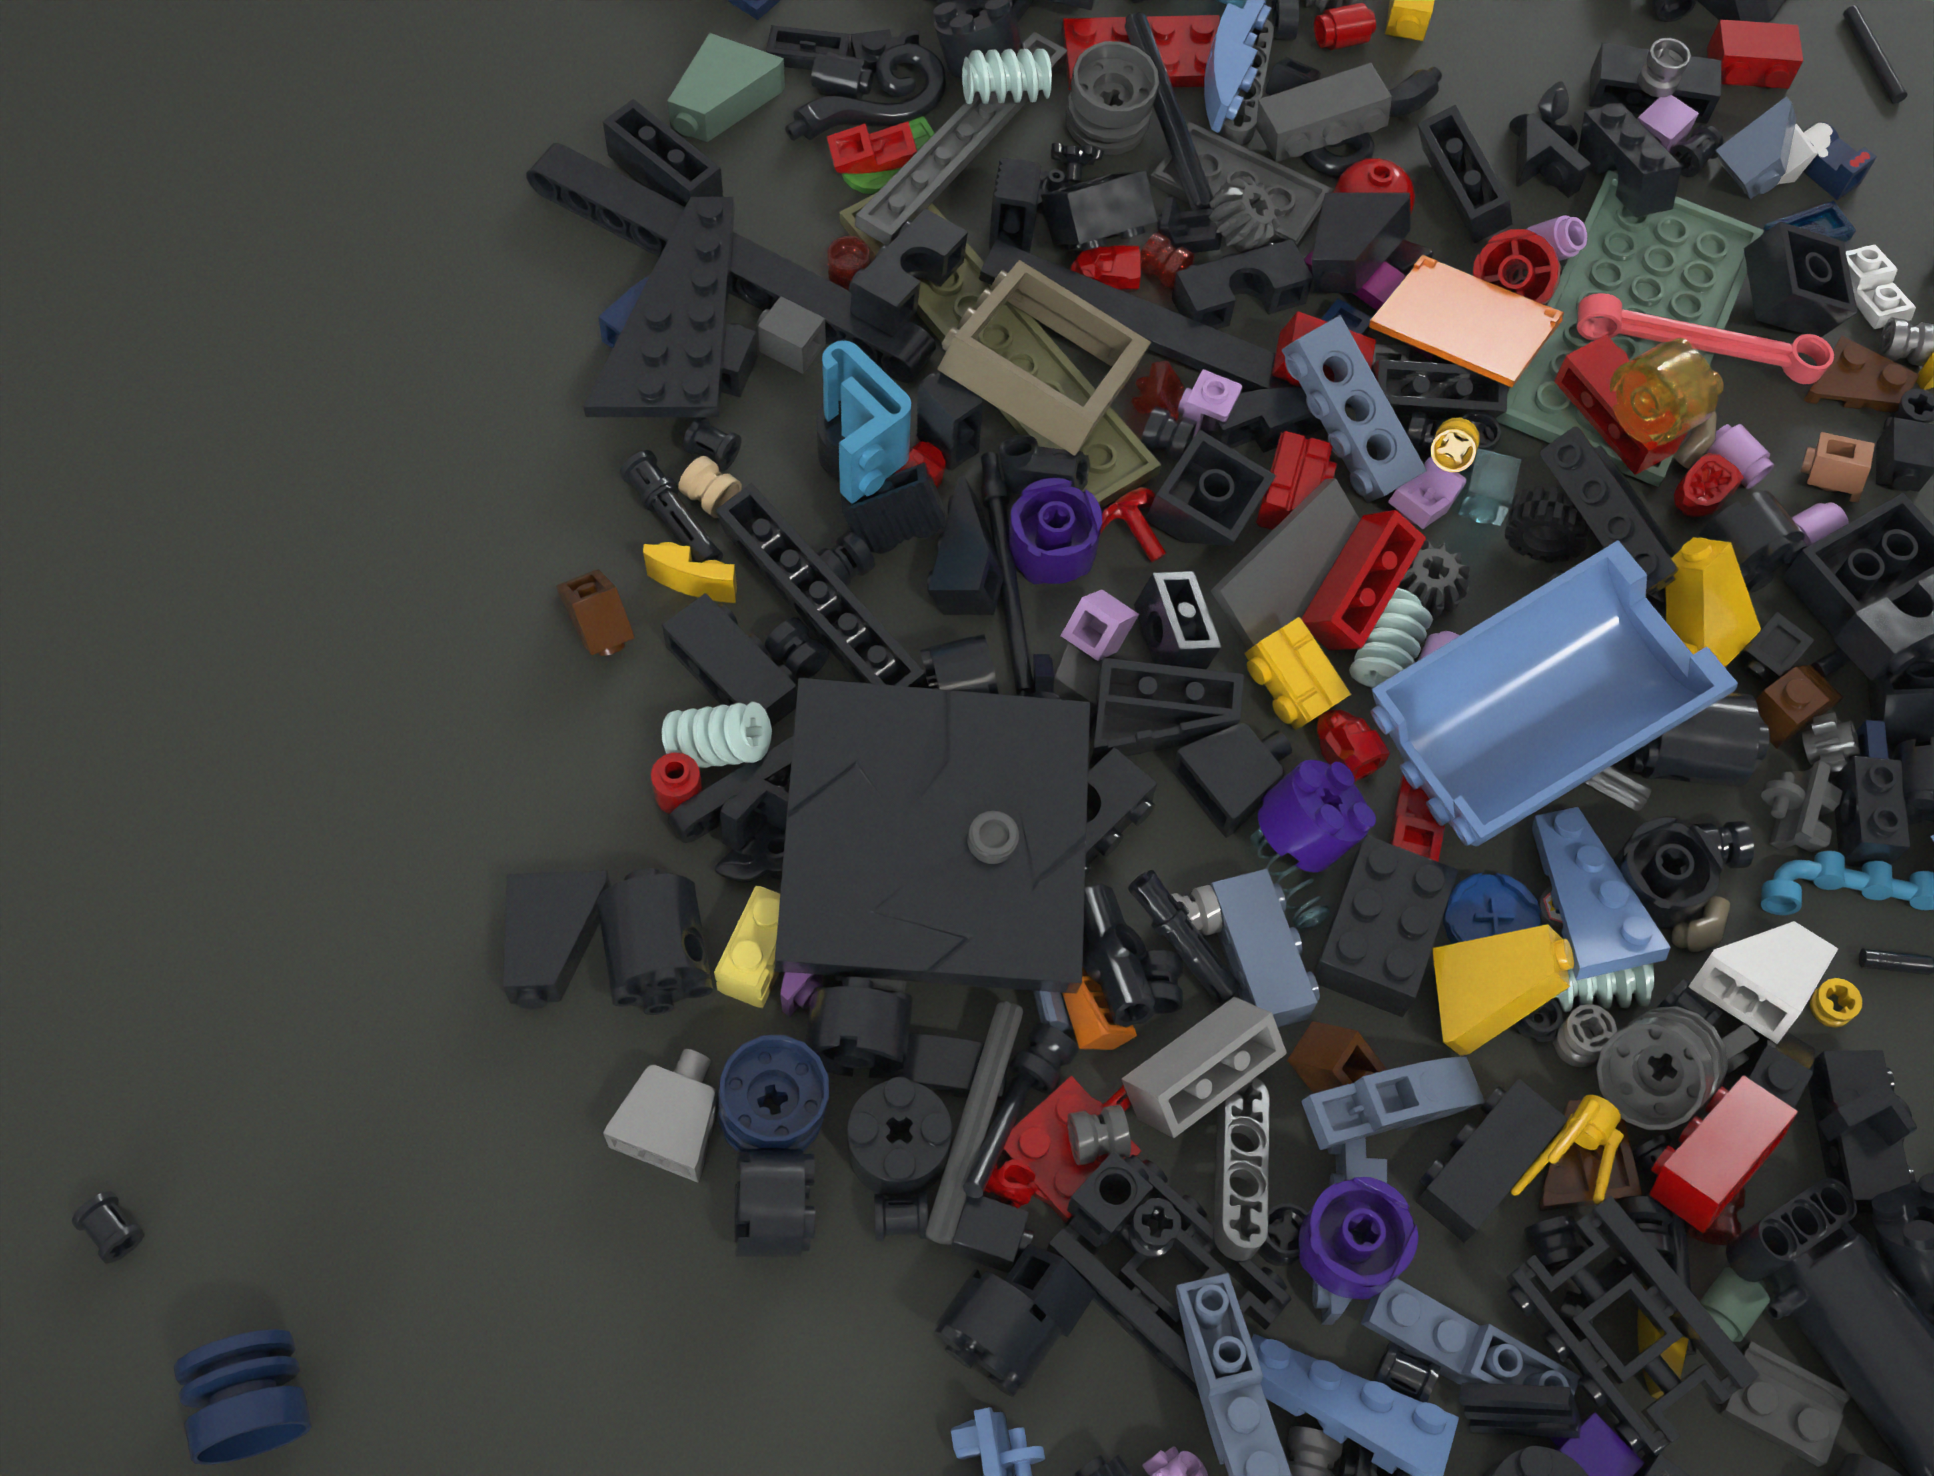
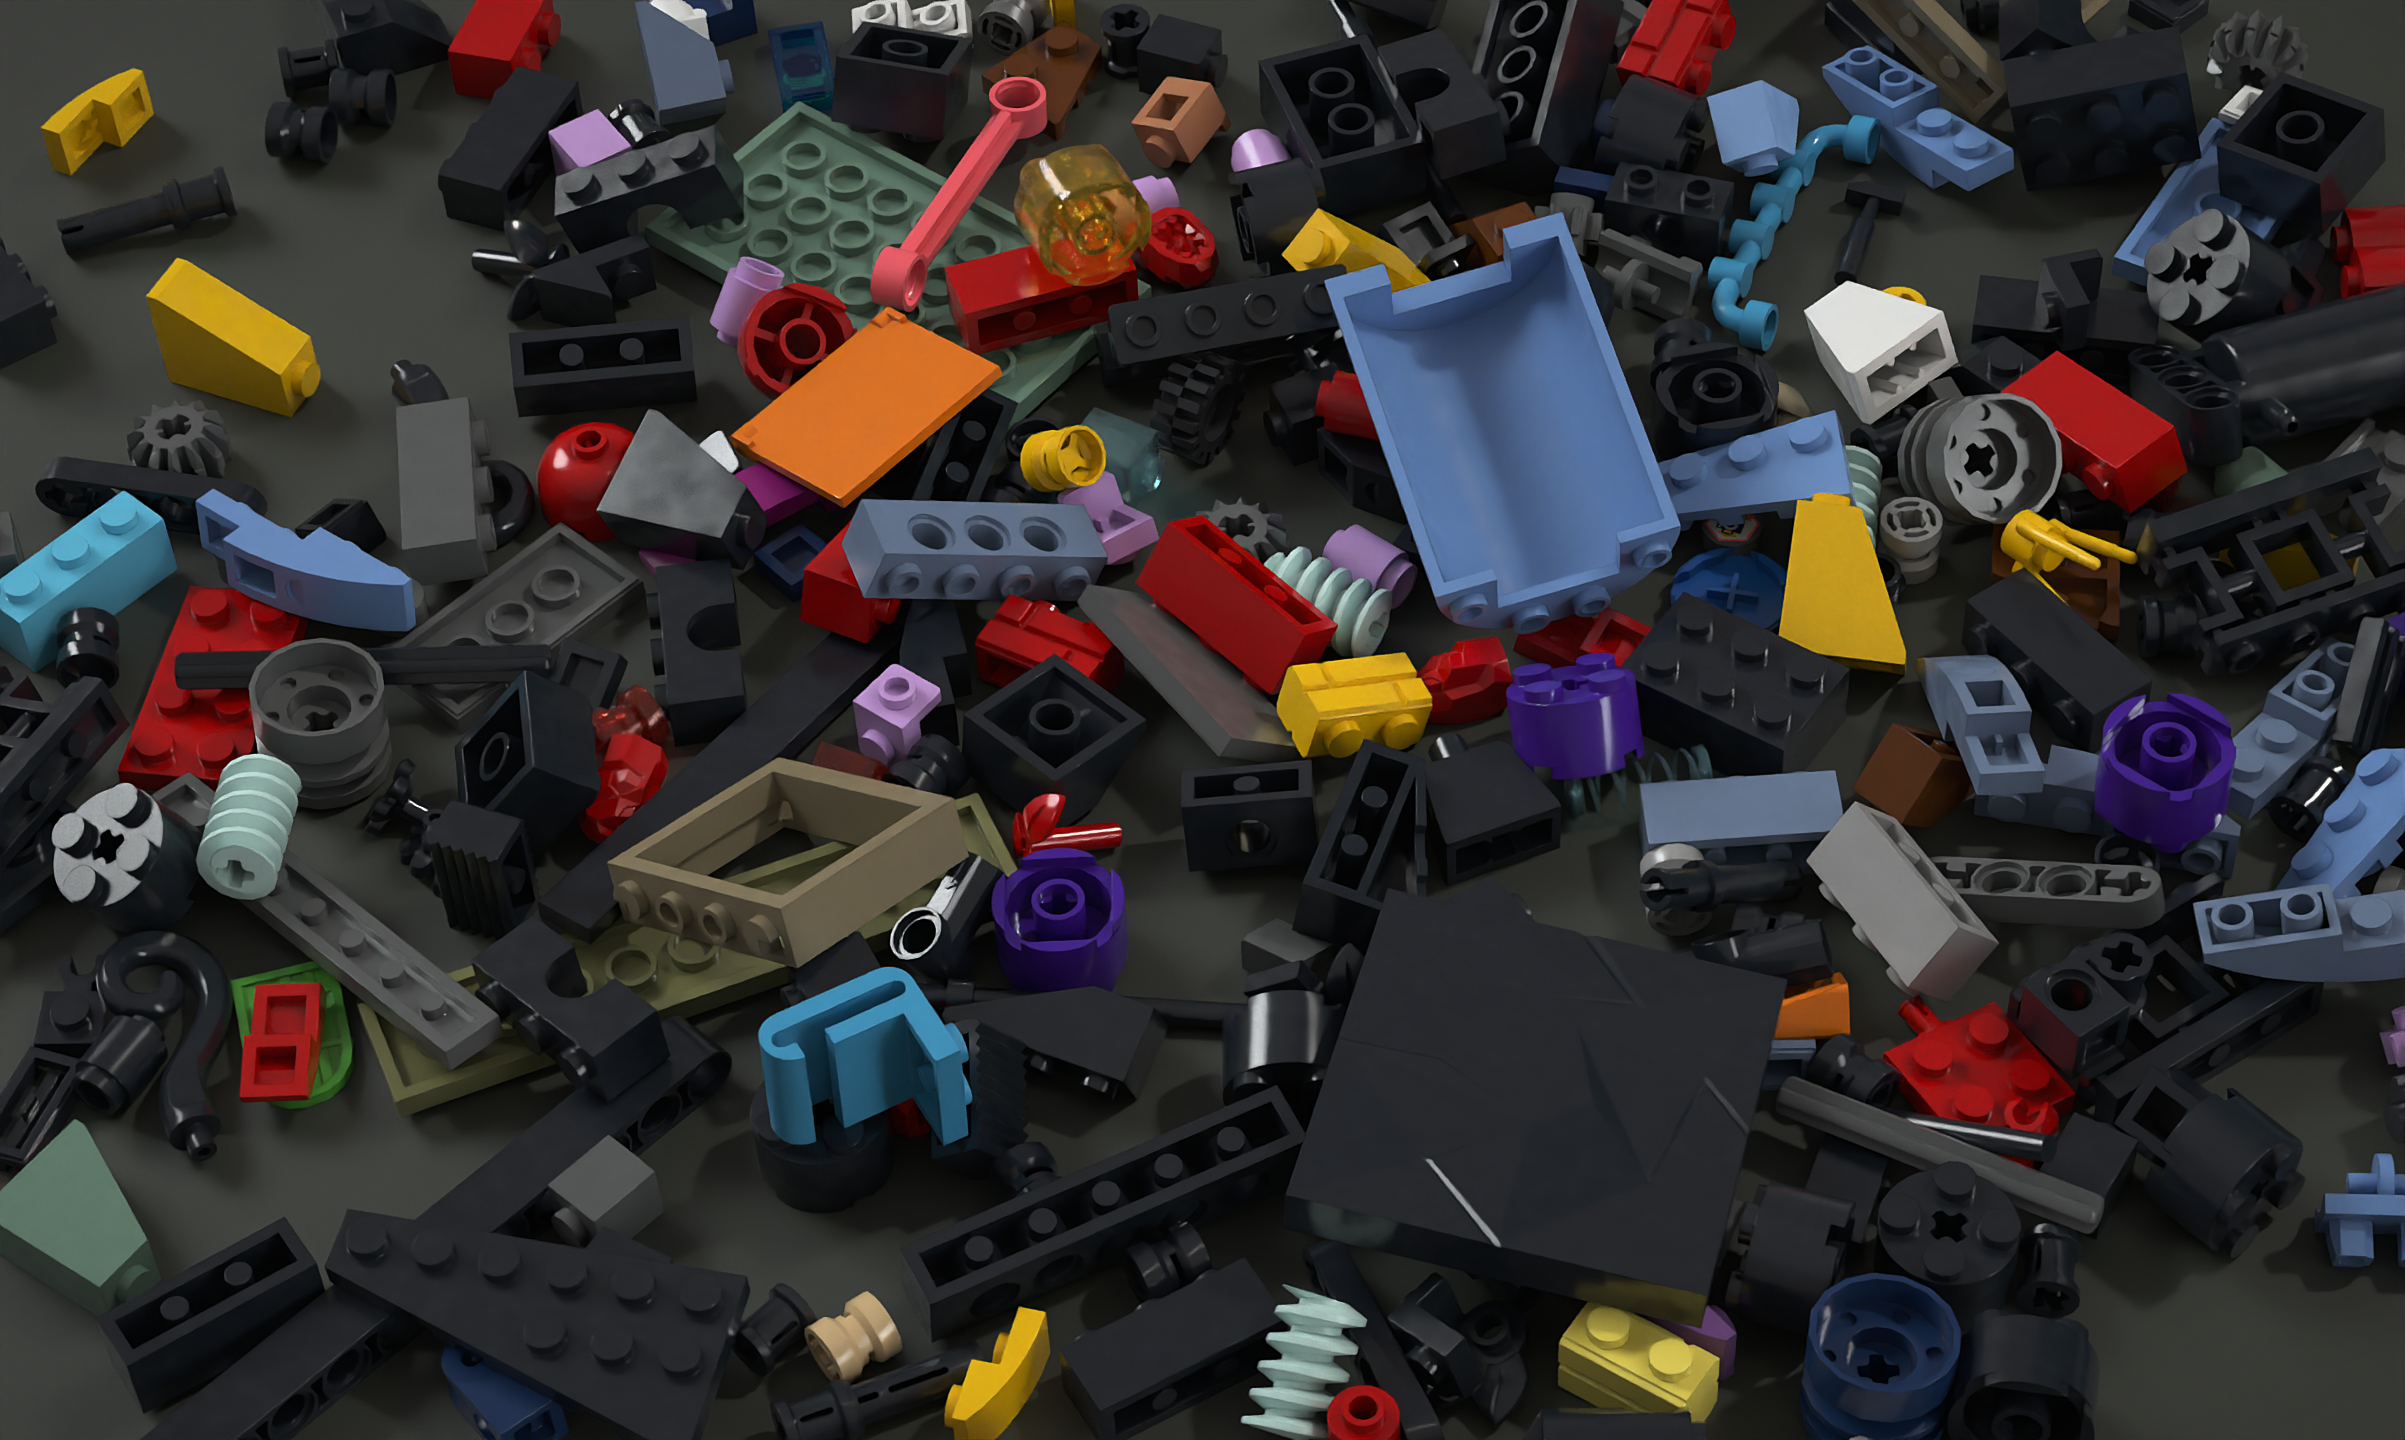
camera: 70 degrees left, 15 degrees down
(845, 258) = (497, 1104): clear red wheel -> none
(993, 837) = (1572, 1023): dark grey tile -> none
(1098, 1134) = (1987, 1027): dark grey wheel -> none
(1099, 625) = (1226, 900): lavender brick -> none
(1244, 213) = (596, 608): dark grey gear -> none
(1344, 26) = (276, 447): red brick -> none
(1664, 67) = (525, 114): flat silver wheel -> none

